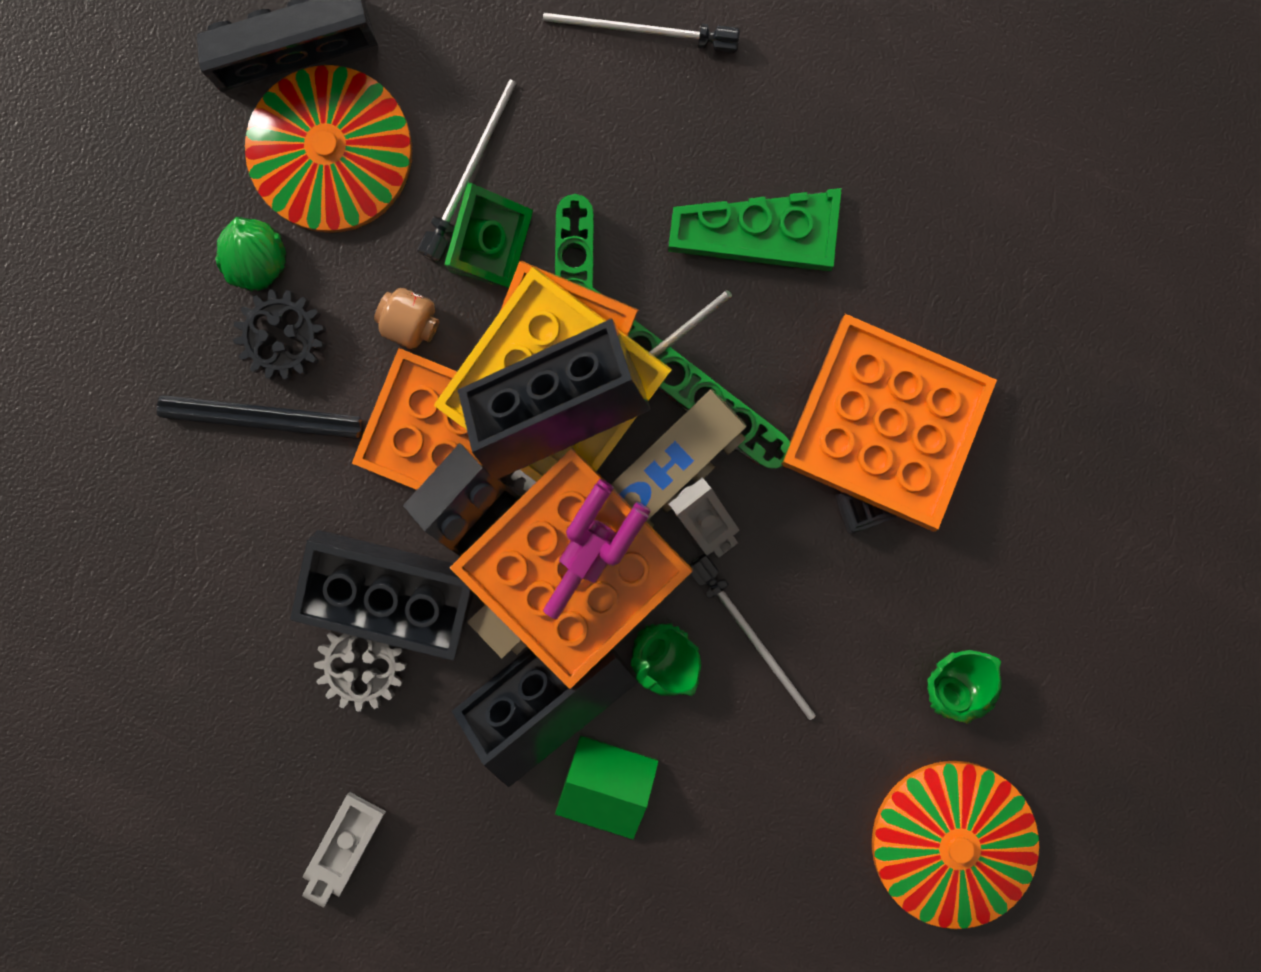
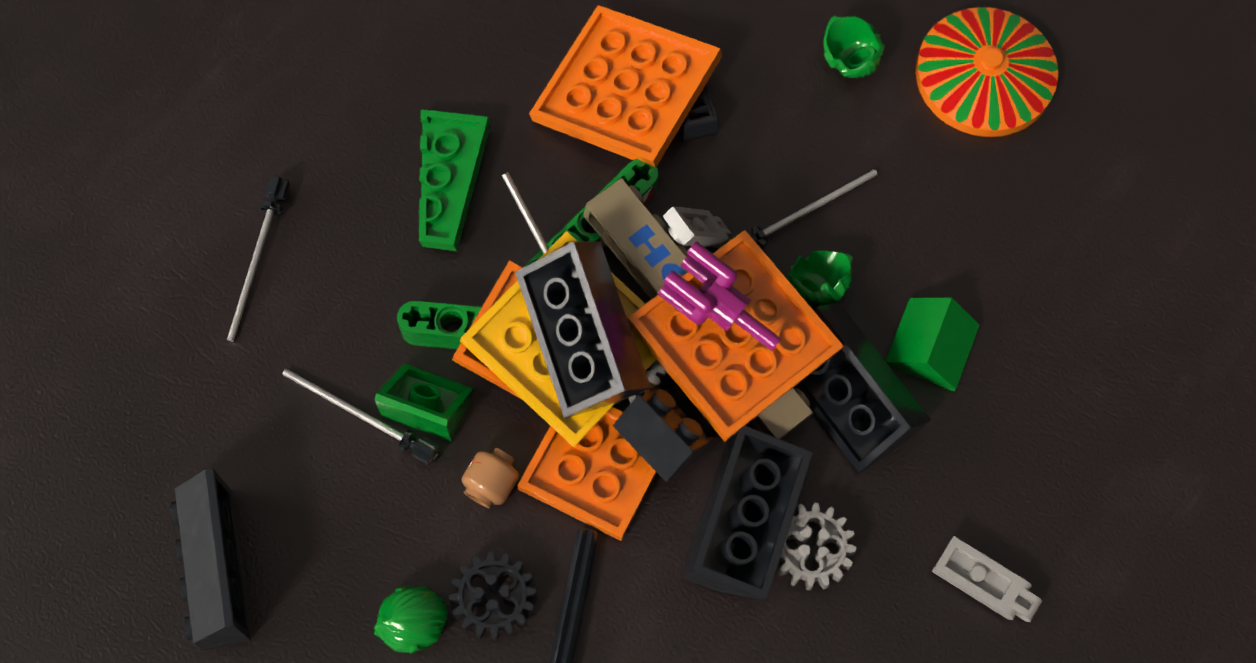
camera: 90 degrees left, 20 degrees down
(328, 149) = (321, 540): dish -> none

